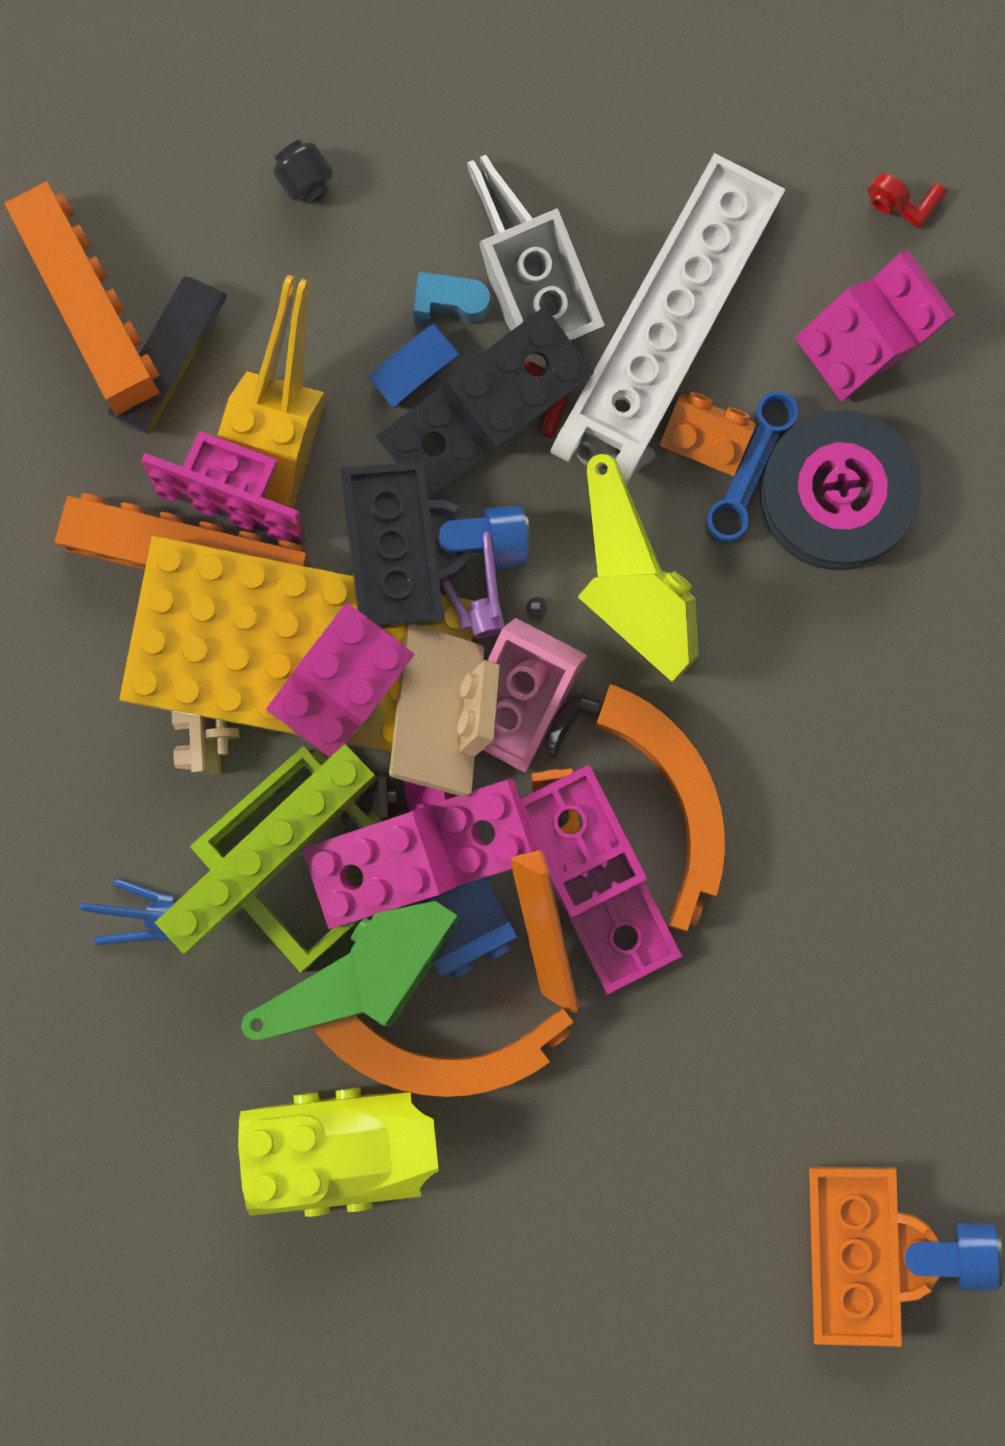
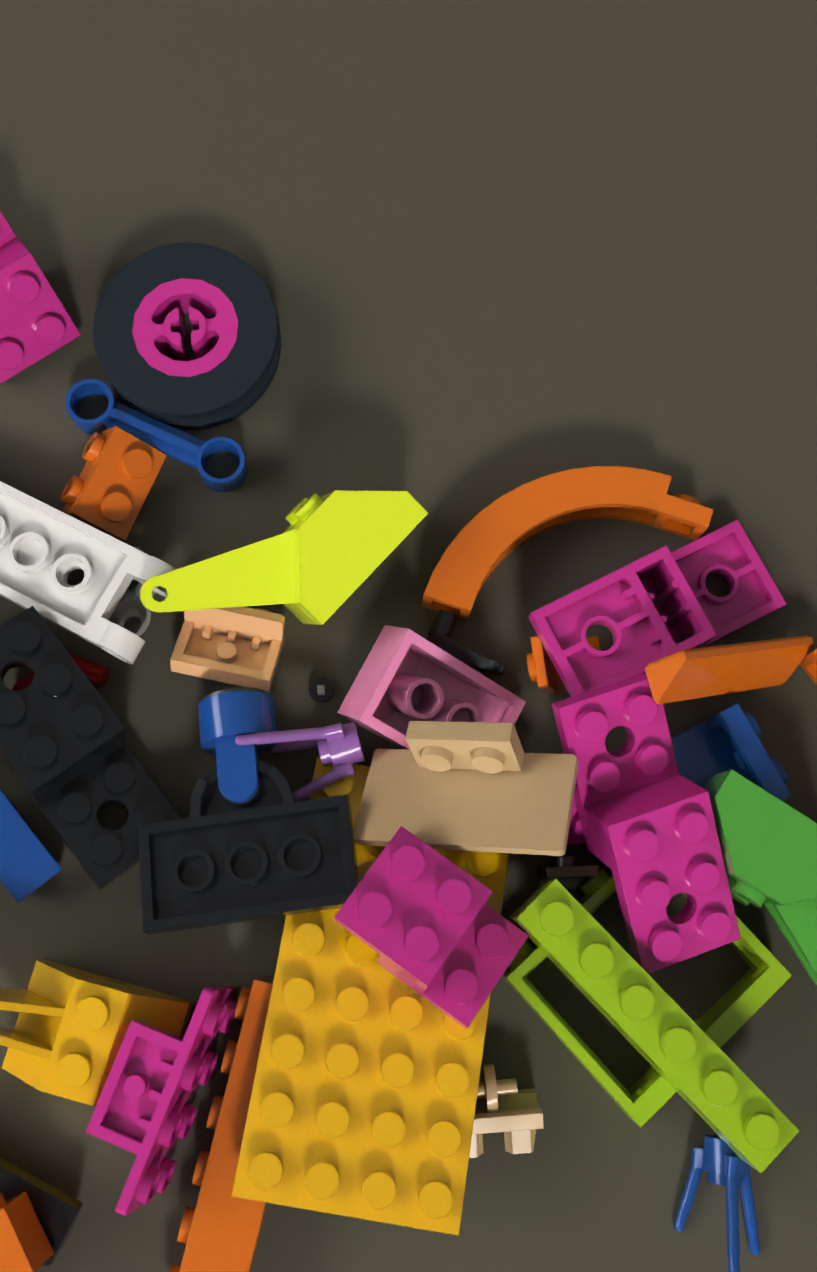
camera: 100 degrees left, 5 degrees down
(566, 532) = (230, 646): none -> light nougat bracket

